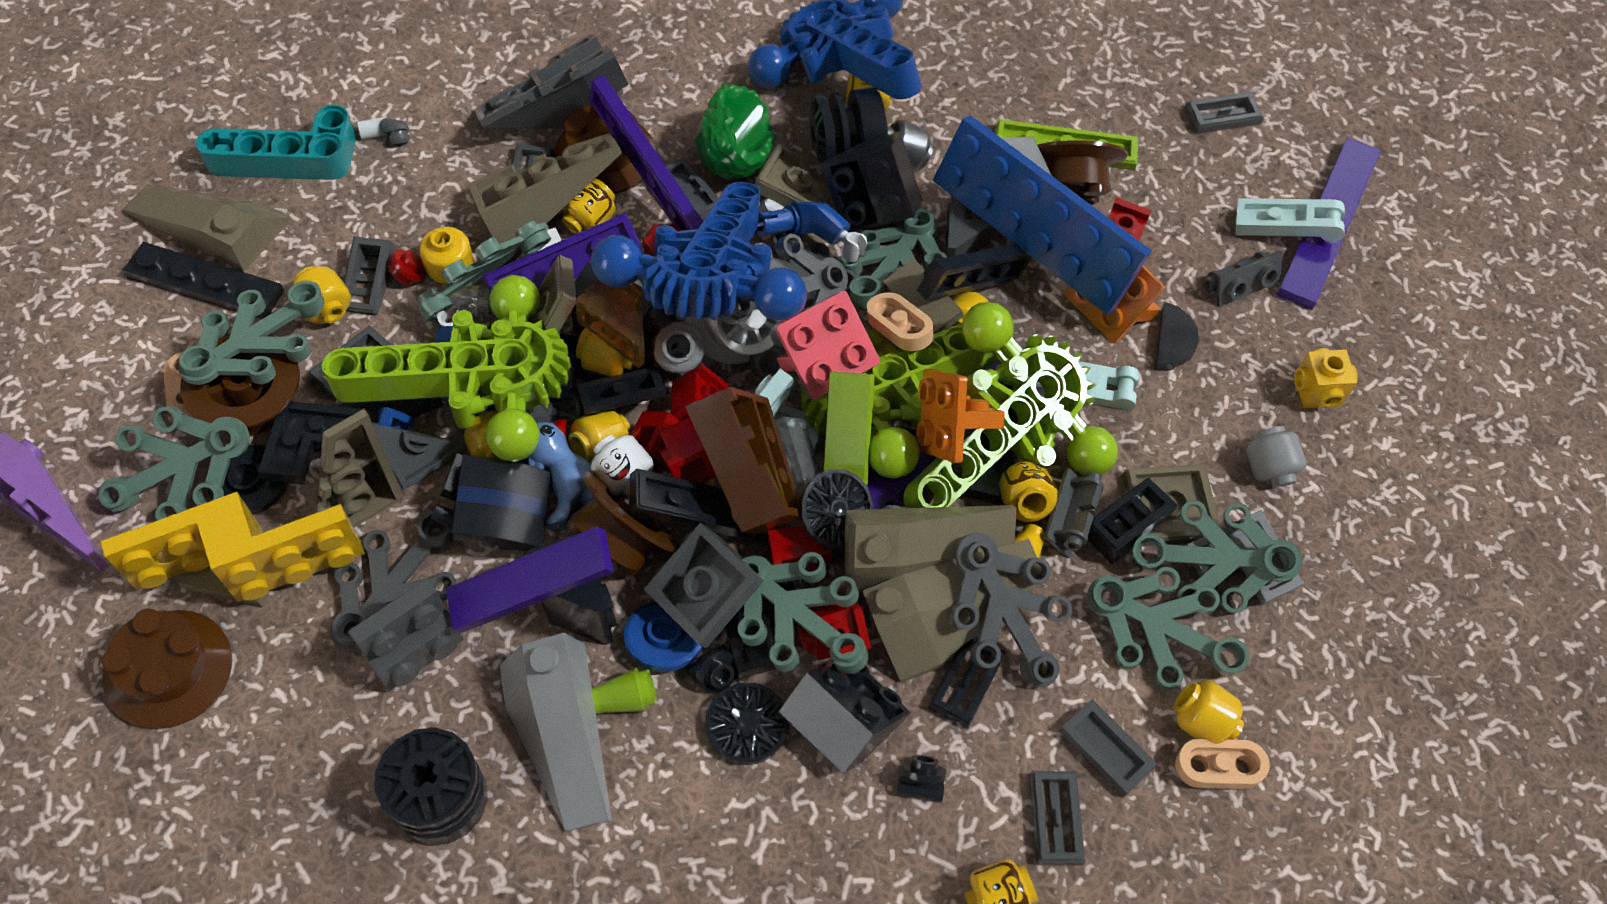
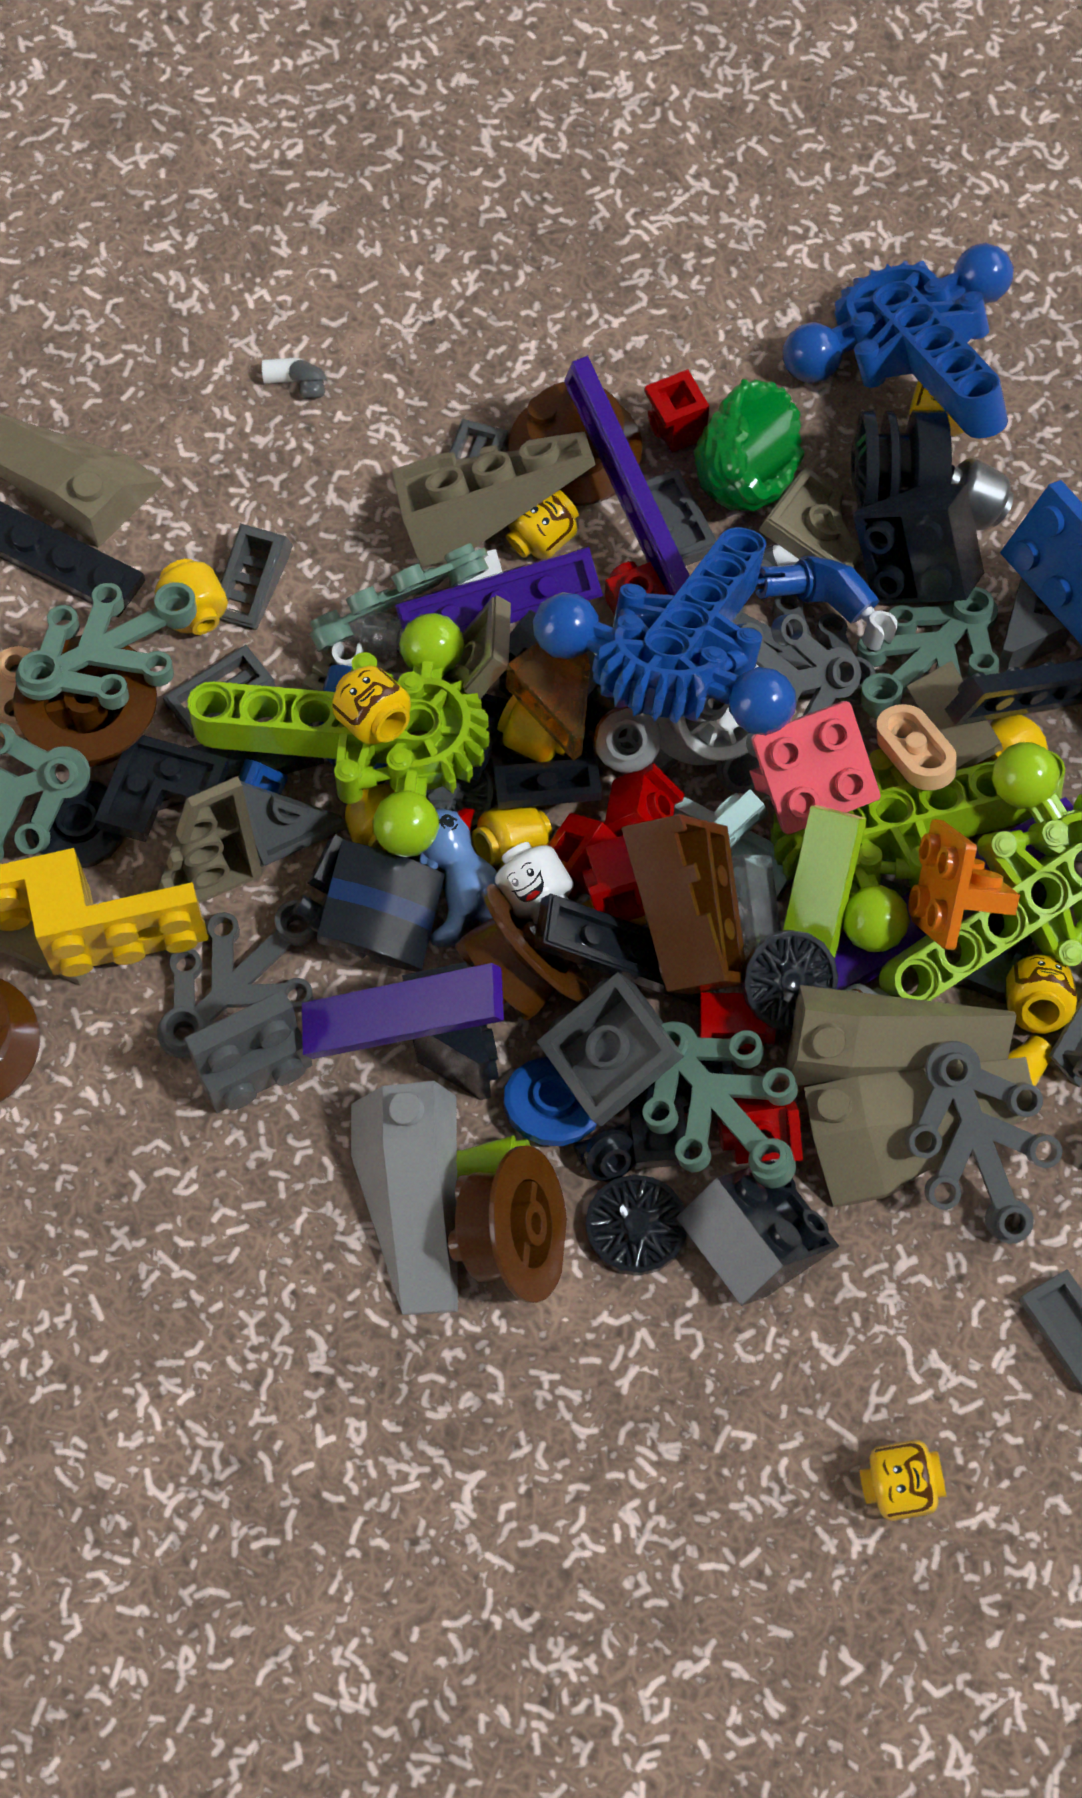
camera: 15 degrees right, 5 degrees up
(283, 154) = (102, 381): teal beam -> none
(406, 267) = (301, 573): red plate -> none
(430, 811) = (256, 1264): black wheel -> none
(443, 248) = (353, 563): yellow head -> none
(471, 345) = (371, 705): none -> yellow head
(555, 90) = (522, 350): dark grey wedge -> none
(645, 740) = (512, 1225): none -> reddish brown piece
(677, 115) = (677, 410): none -> red brick
(922, 779) = (836, 1328): black plate -> none
(951, 711) = (890, 1254): black tile -> none
(1057, 857) = (986, 1450): dark grey tile -> none

